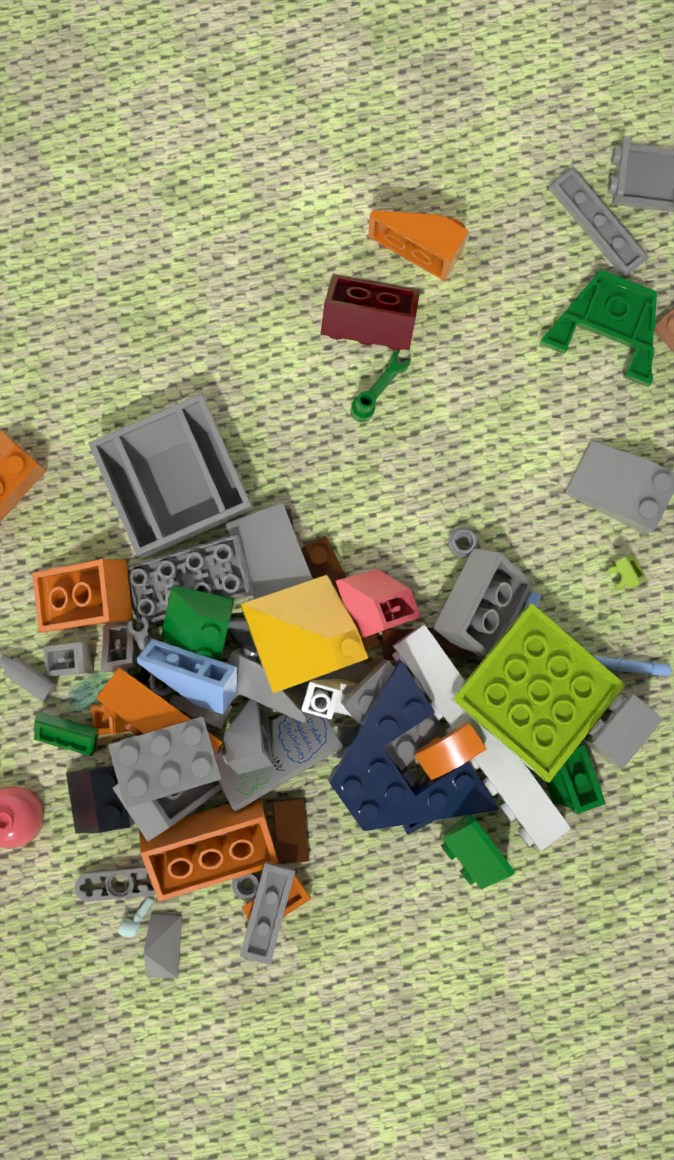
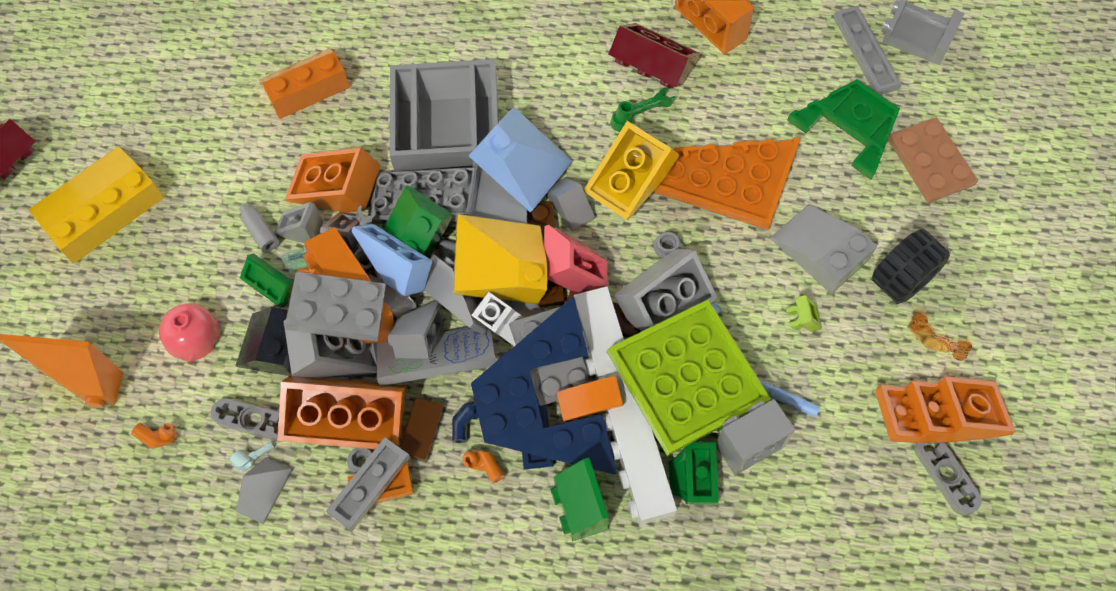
camera: 20 degrees right, 20 degrees down
(33, 936) = (157, 438): none -> orange arm
(277, 504) = (521, 159): none -> light blue slope
(326, 807) = (461, 419): none -> dark blue arm
(343, 528) = (571, 203): none -> light grey slope
(366, 840) = (483, 461): none -> orange arm
(399, 477) = (630, 171): none -> yellow slope
(495, 443) = (732, 180): none -> orange wing

